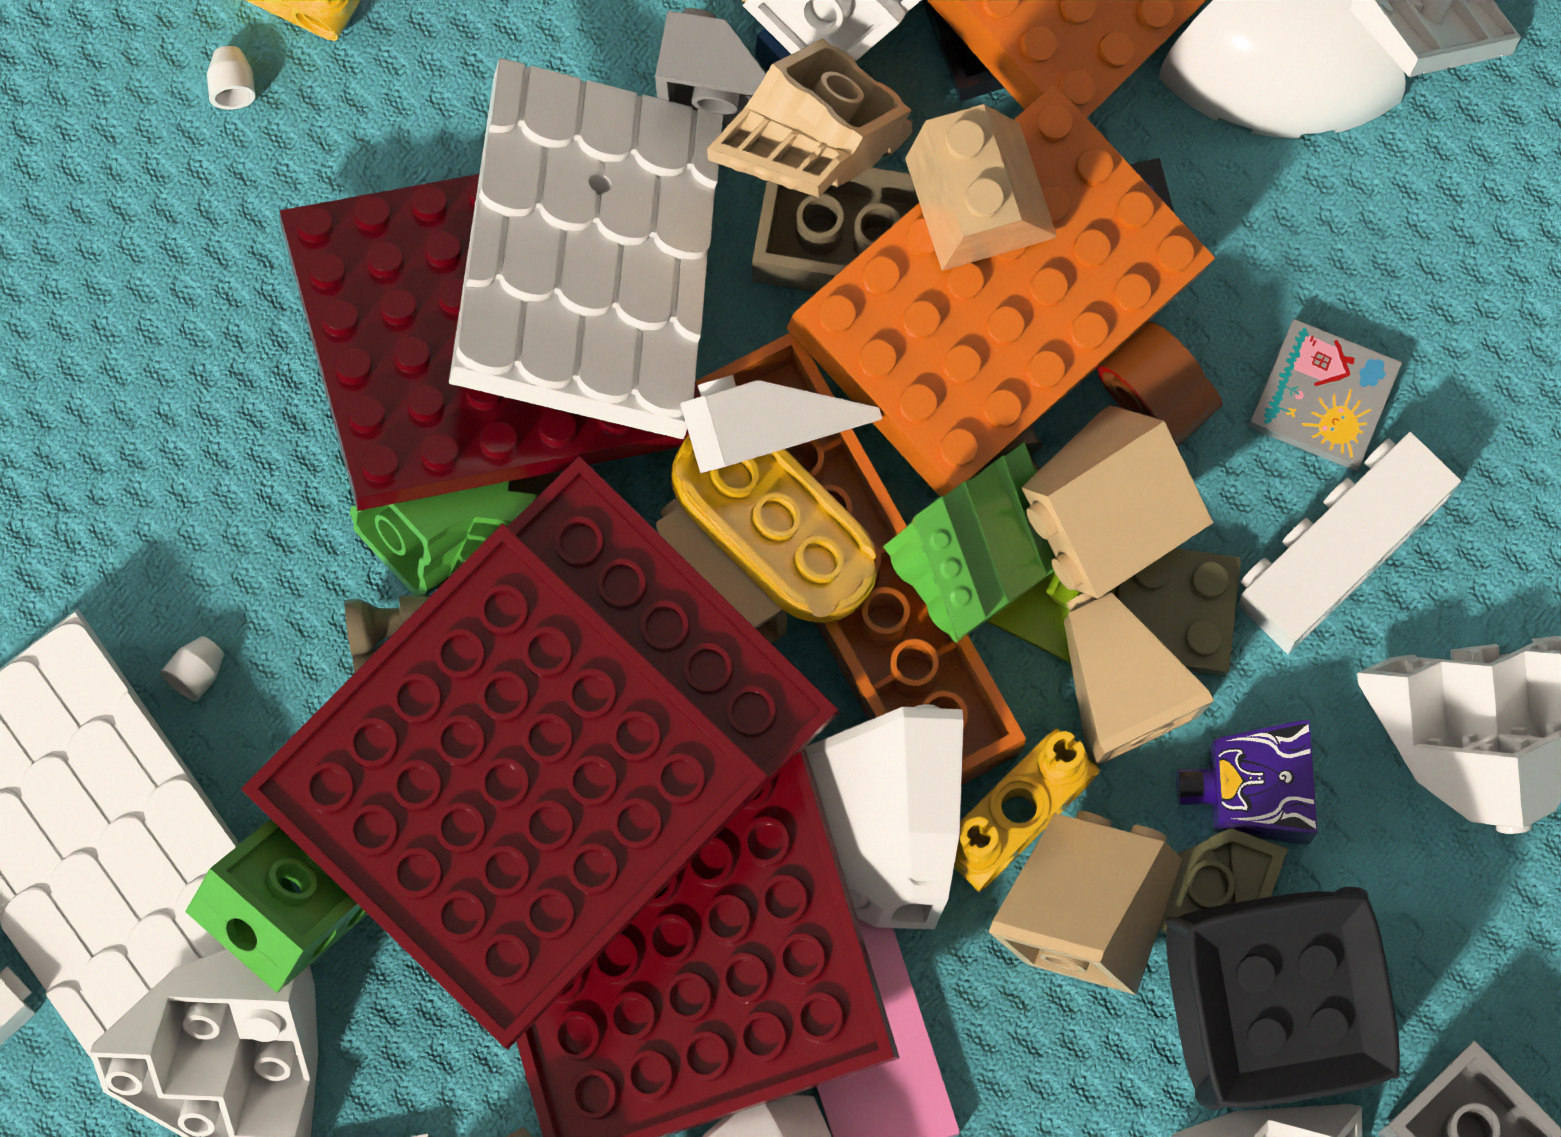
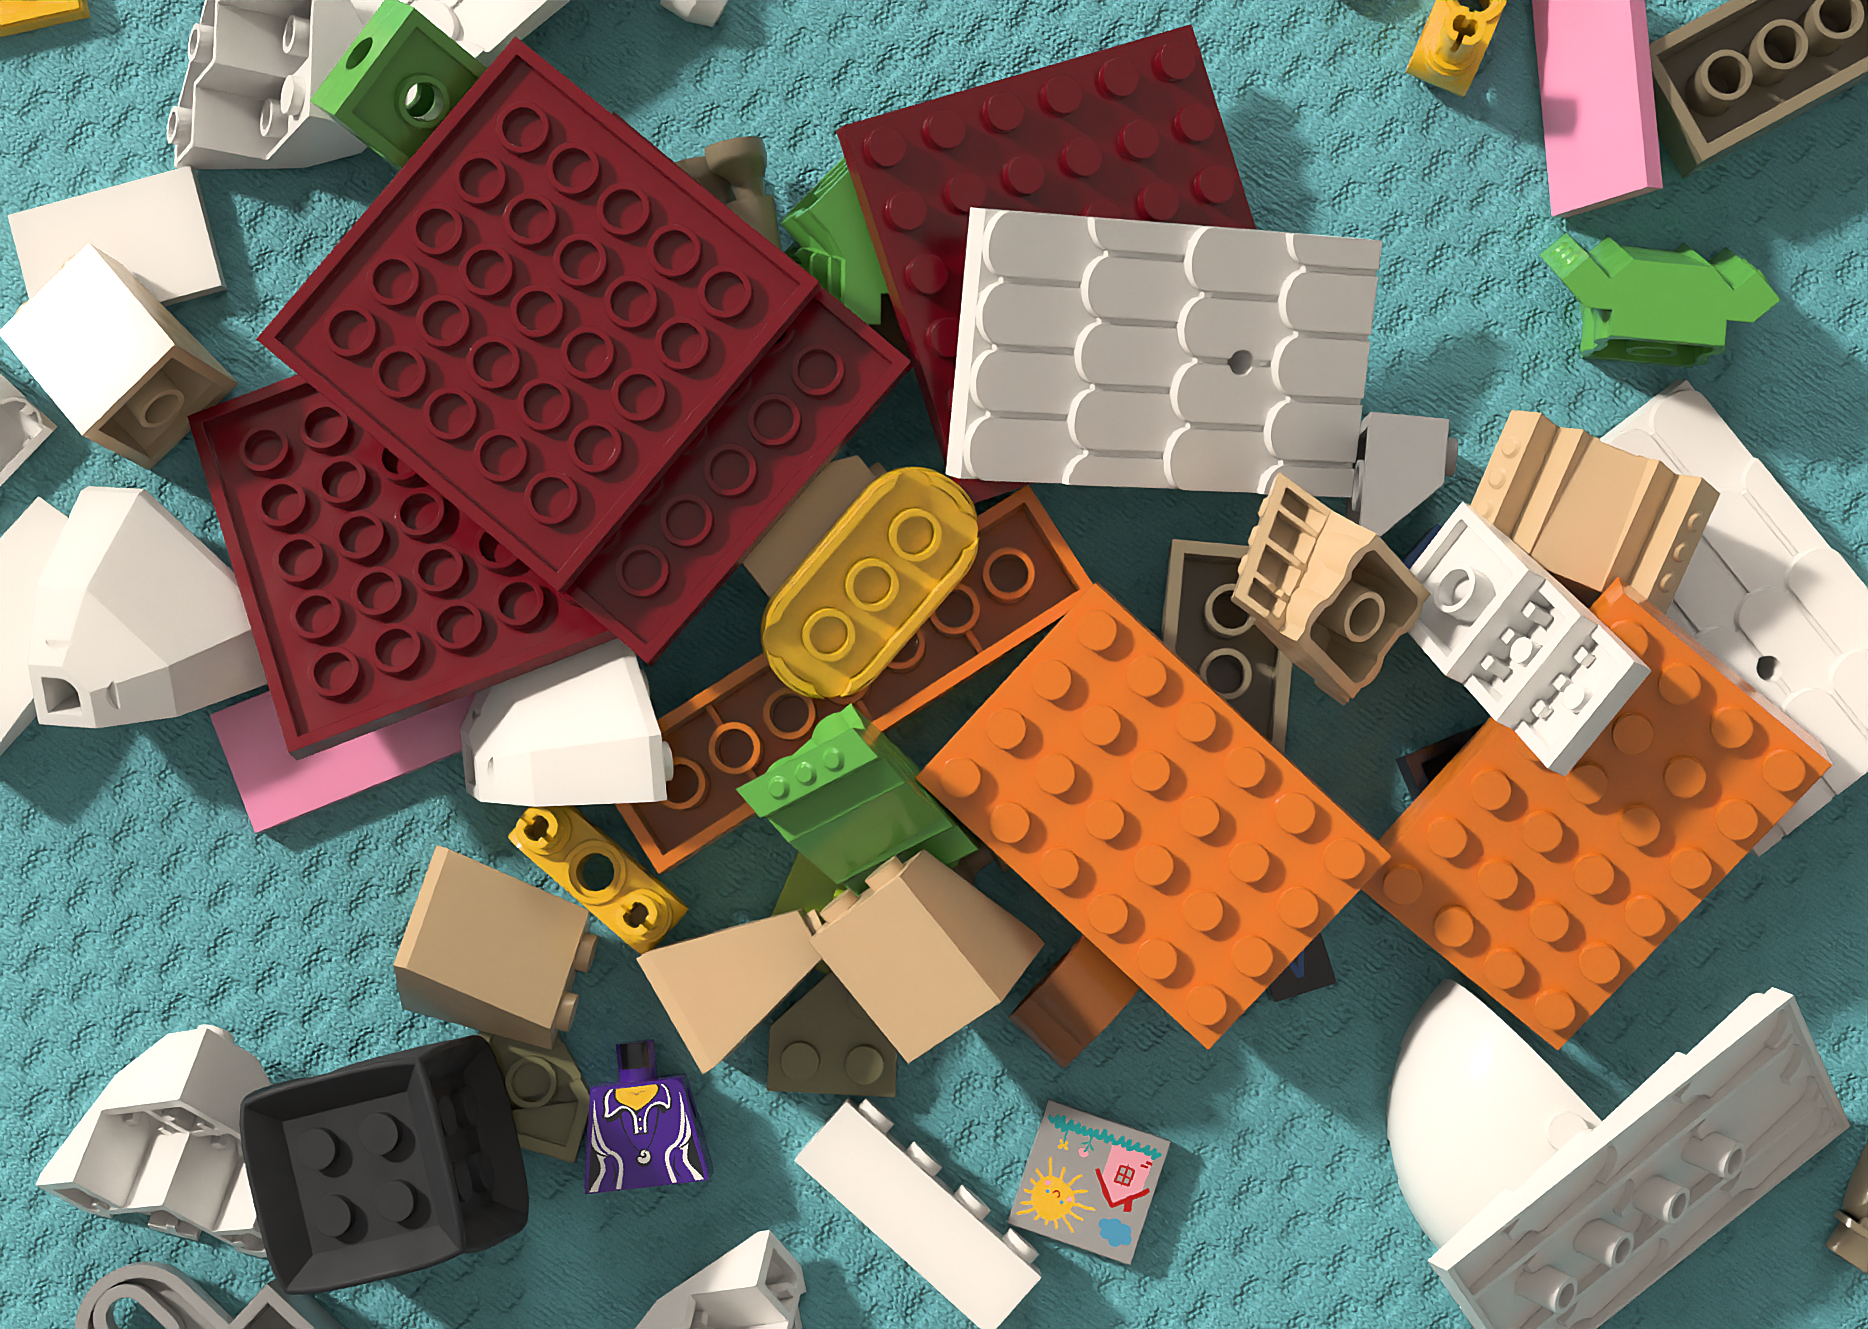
camera: 90 degrees right, 10 degrees up
(762, 418) = (963, 546): white slope -> none
(977, 186) = (1244, 780): tan slope -> none

